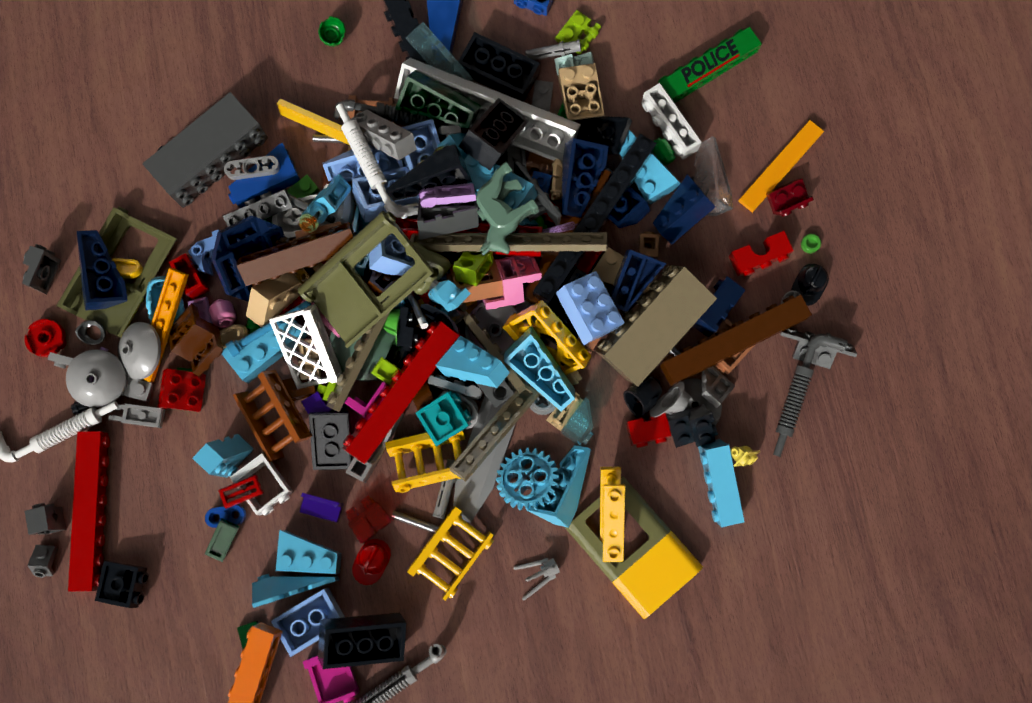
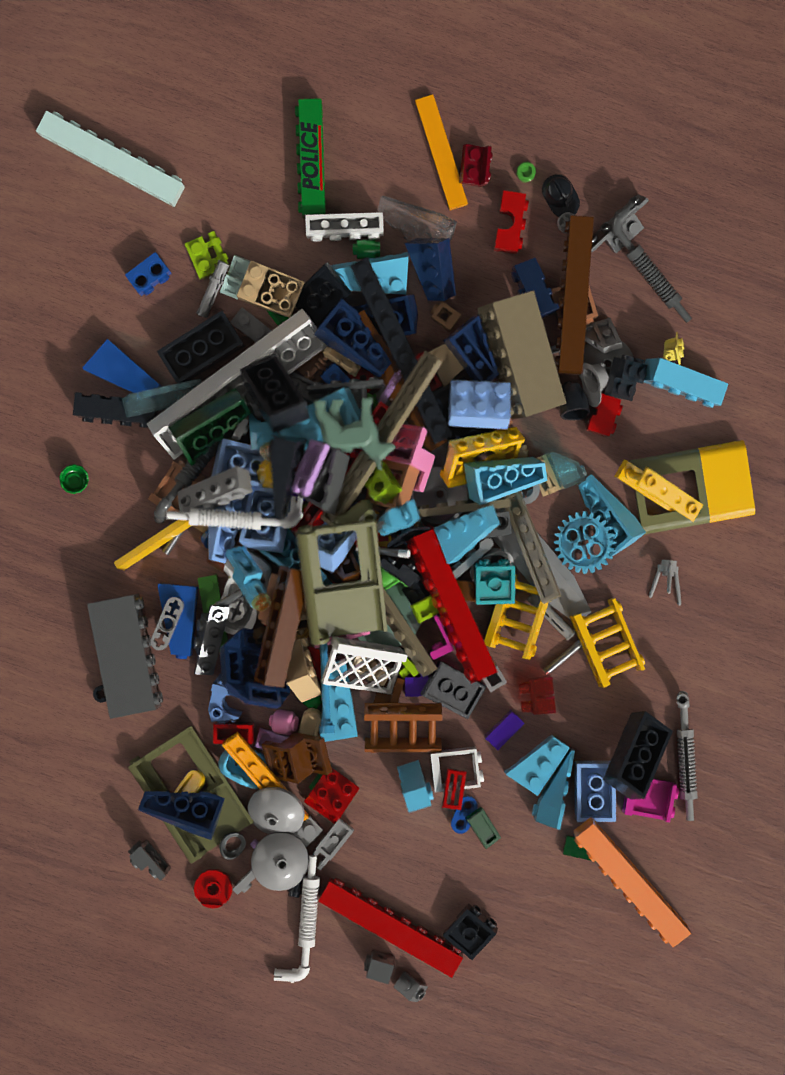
camera: 60 degrees left, 10 degrees up
(371, 562) = (574, 713): red piece -> none

